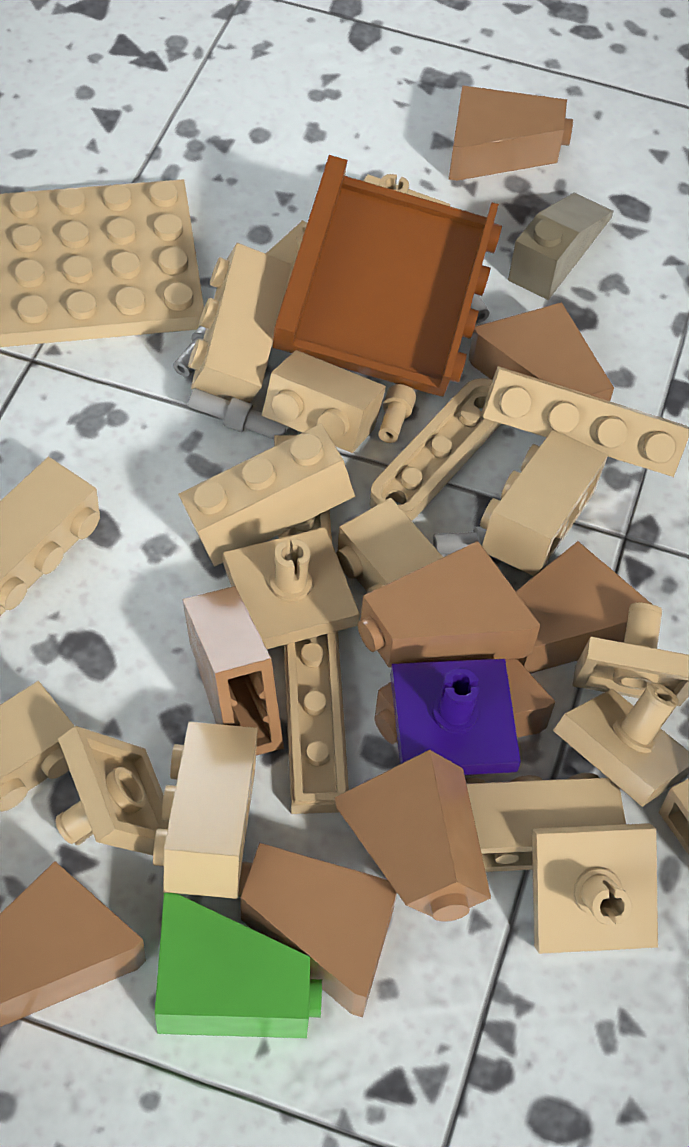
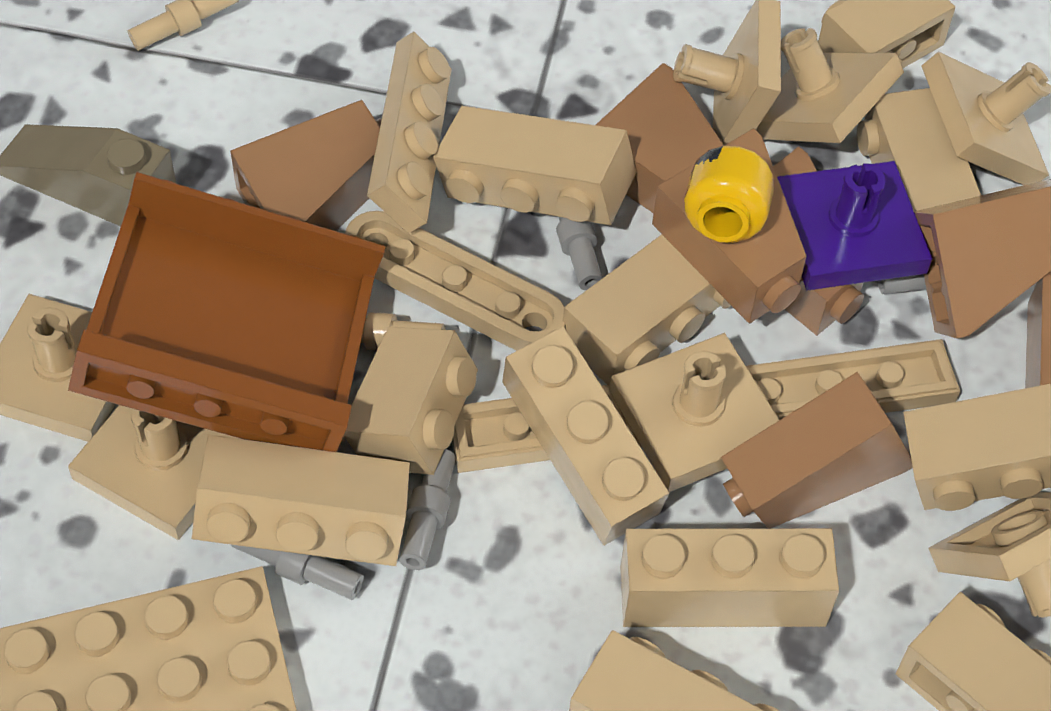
camera: 95 degrees left, 0 degrees up
(134, 585) = (728, 577): none -> tan brick
(445, 569) = (729, 194): none -> yellow head

